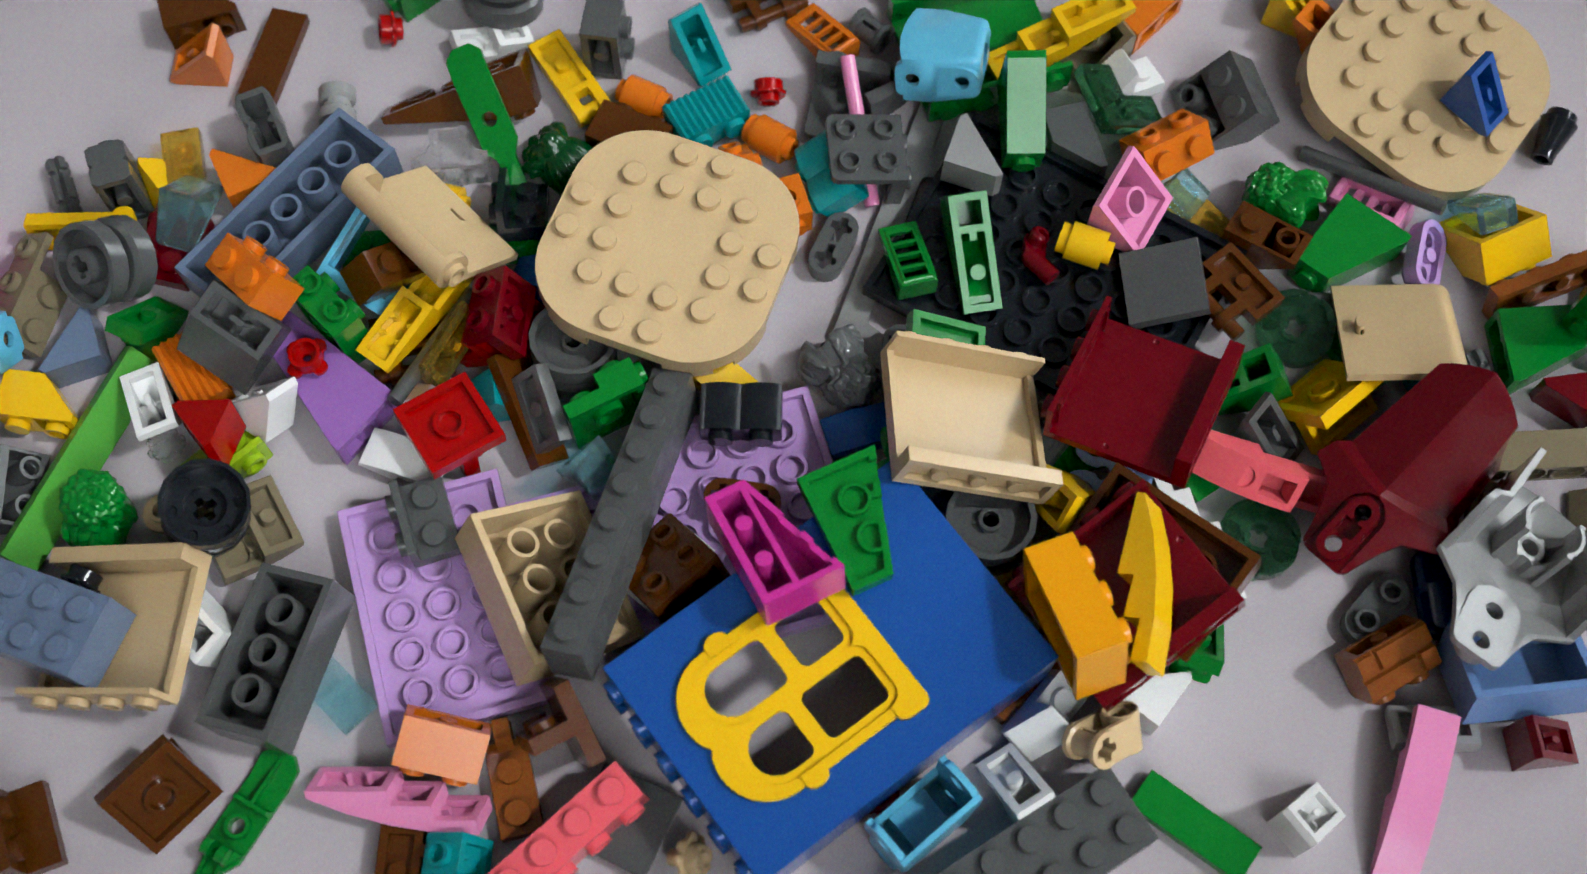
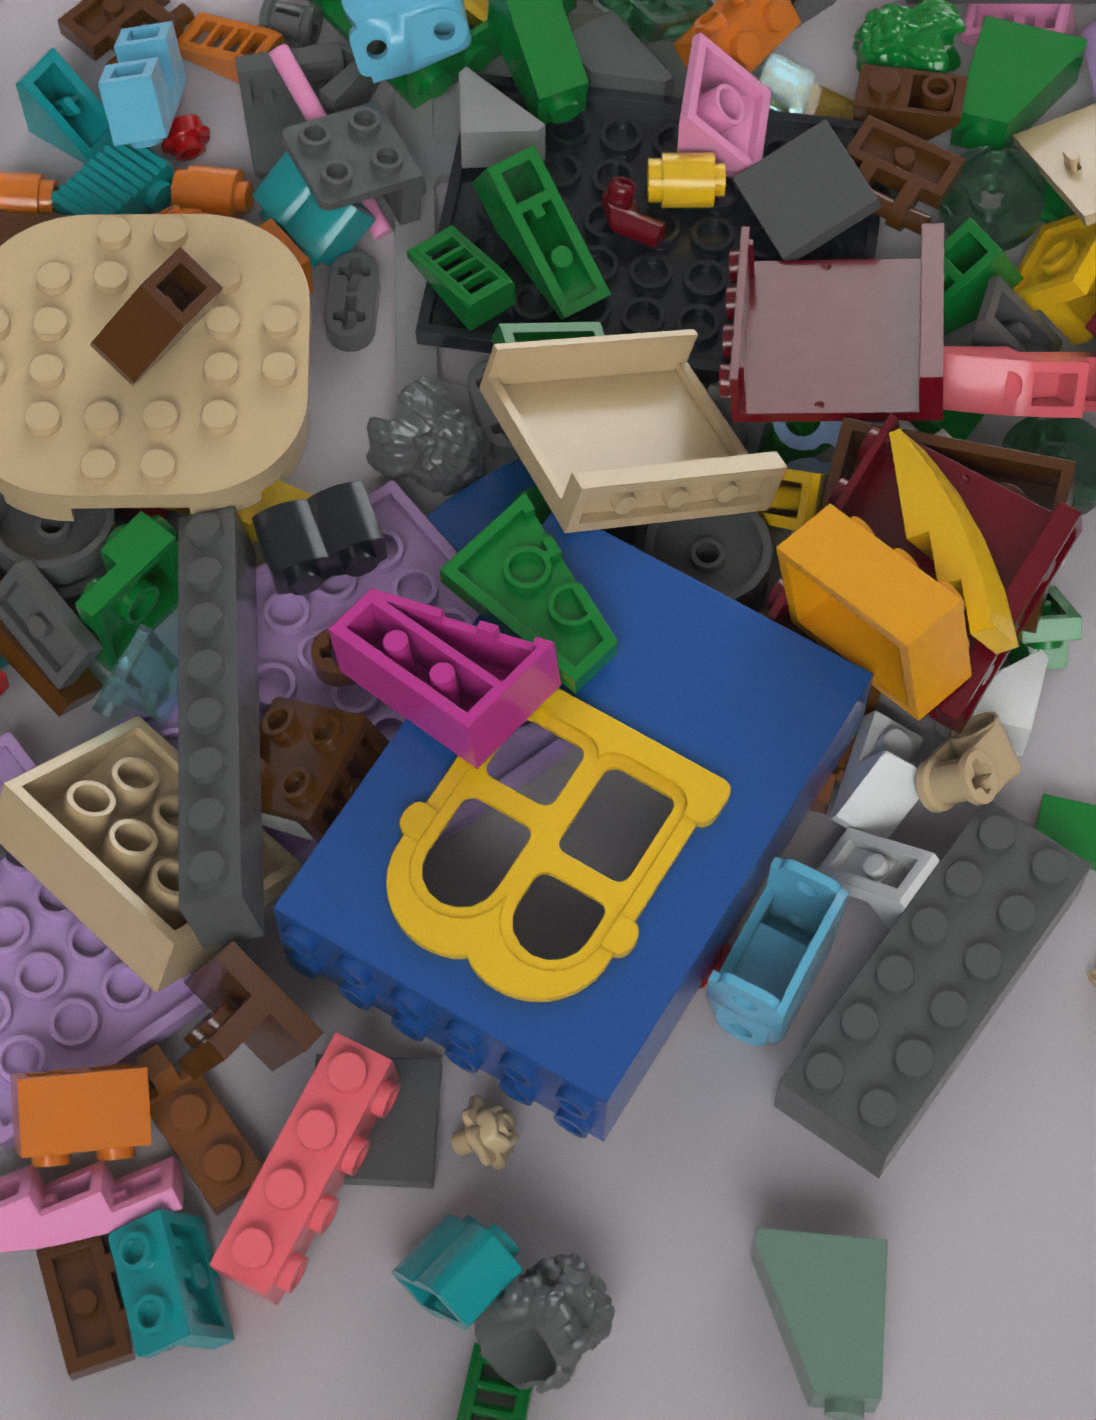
camera: 20 degrees left, 5 degrees down
(685, 229) = (157, 316): none -> reddish brown slope
(748, 56) = (144, 85): none -> medium azure arch

